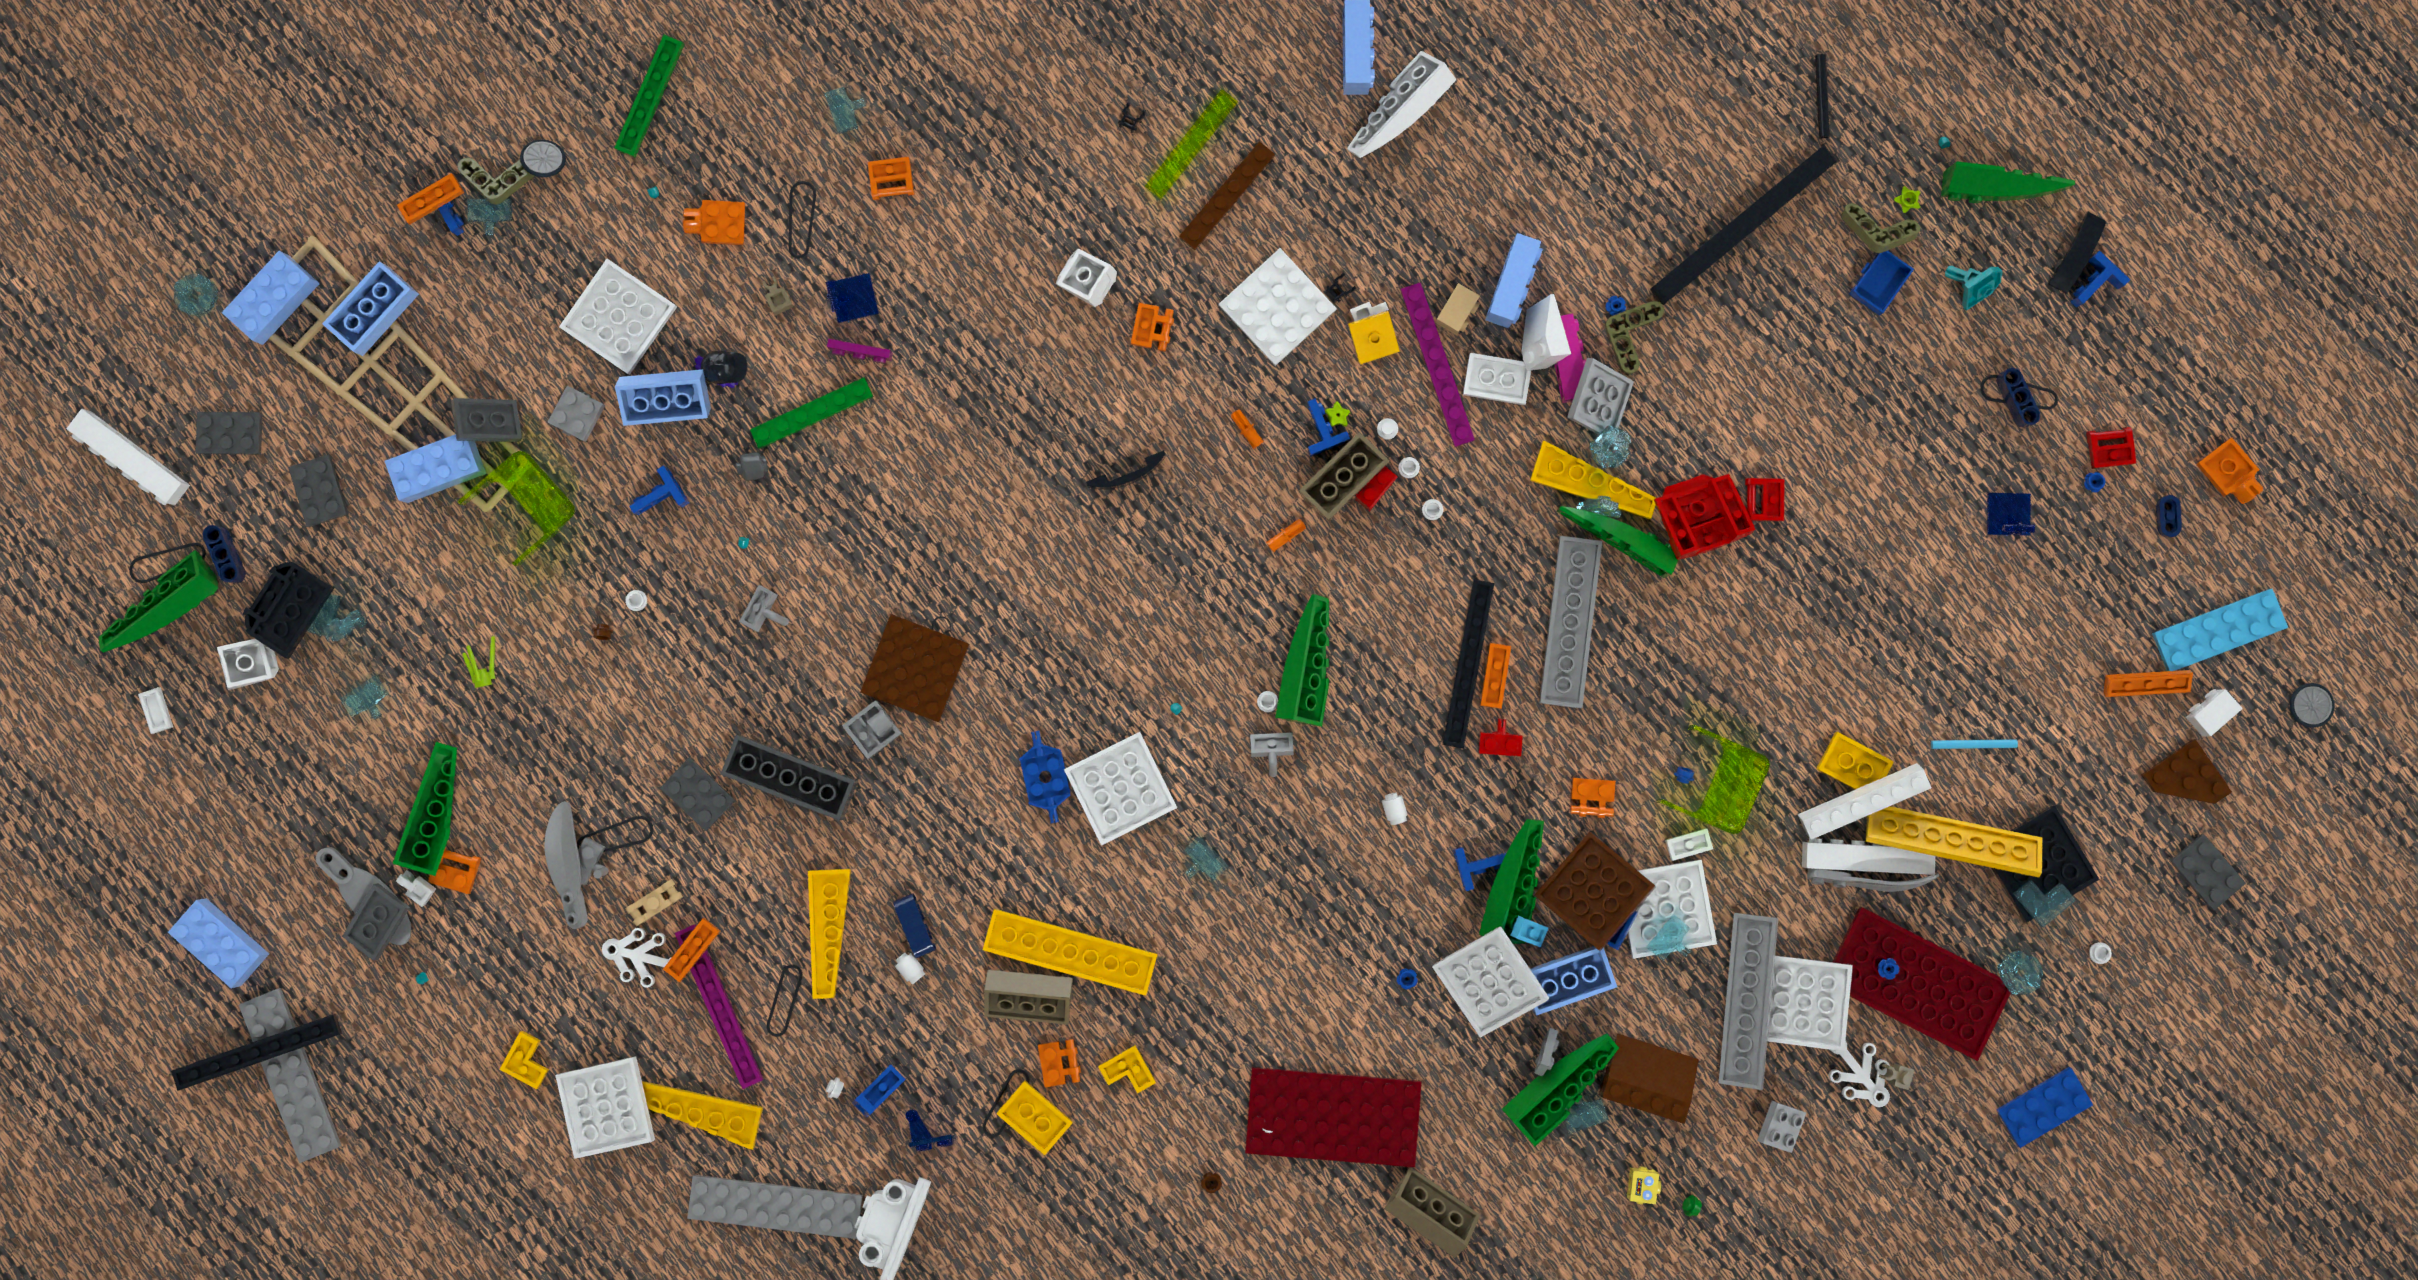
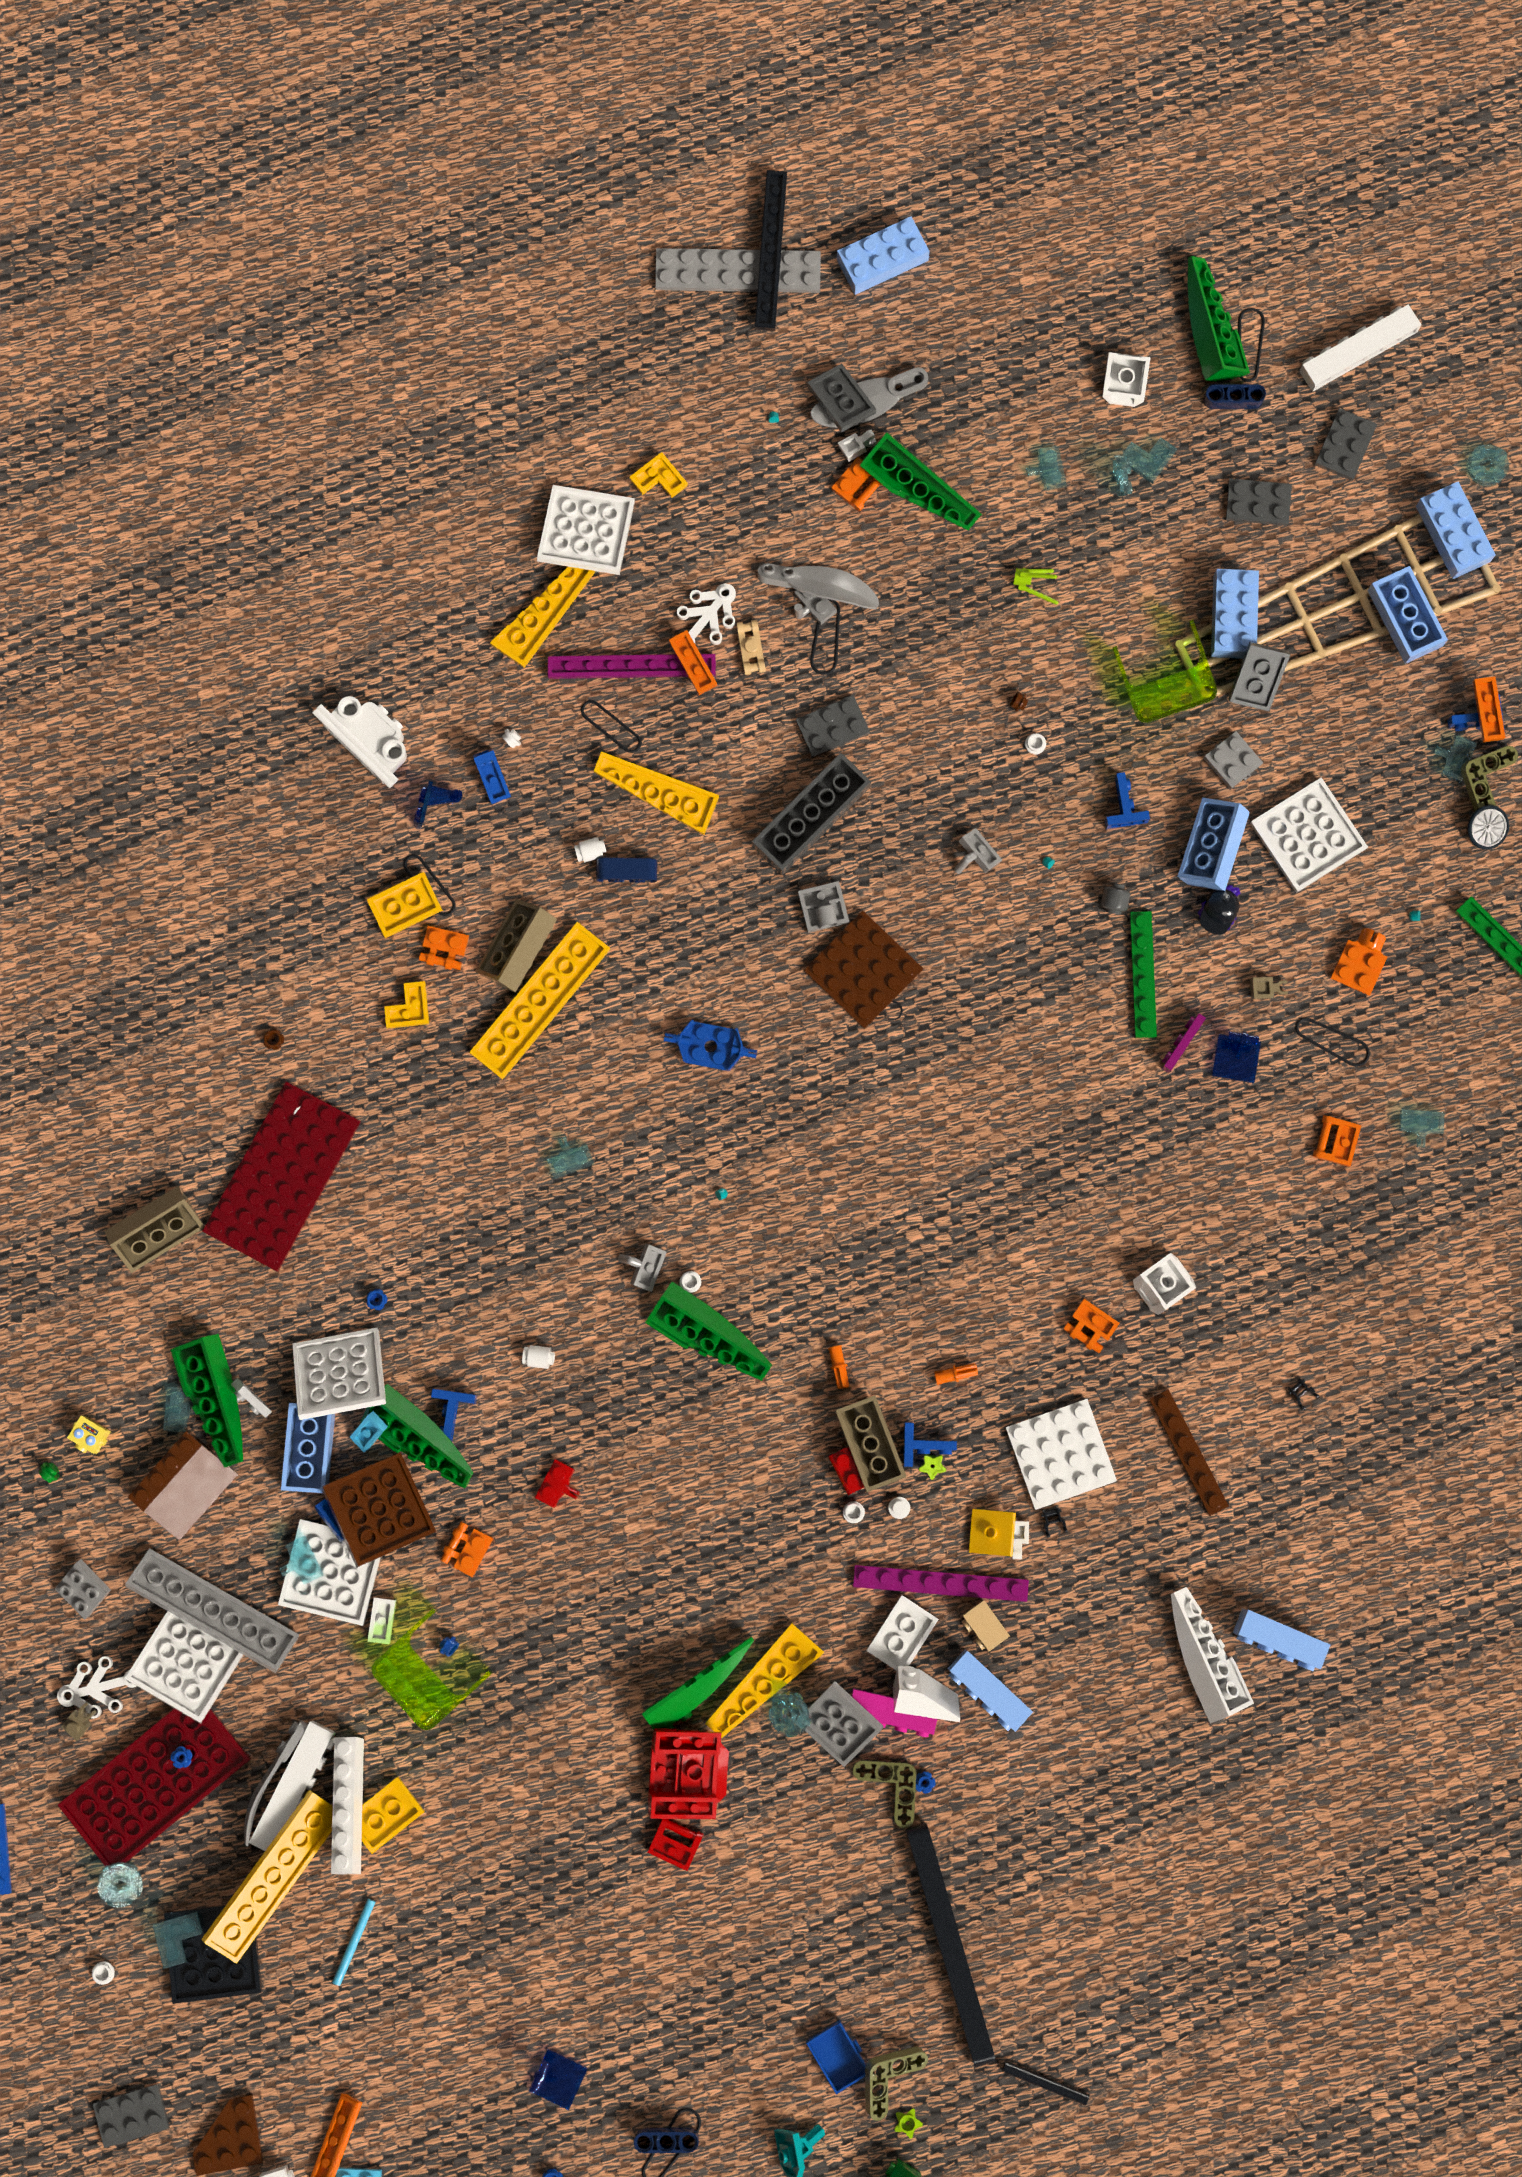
camera: 110 degrees right, 5 degrees down
(155, 710) = (1117, 282): white tile -> none
(286, 607) = (1161, 432): black plate -> none
(774, 1206) = (430, 642): light grey plate -> none
(1120, 788) = (669, 1110): white plate -> none
(1152, 463) = (960, 1269): black slope -> none
(1191, 144) = (1253, 1440): clear neon green plate -> none
(1432, 509) = (804, 1517): white plate -> none
(1468, 664) = (643, 1487): black tile -> none
(1495, 675) = (620, 1507): orange plate -> none
(1570, 622) = (640, 1601): light grey plate -> none
(1601, 505) = (737, 1677): clear light blue plate -> none

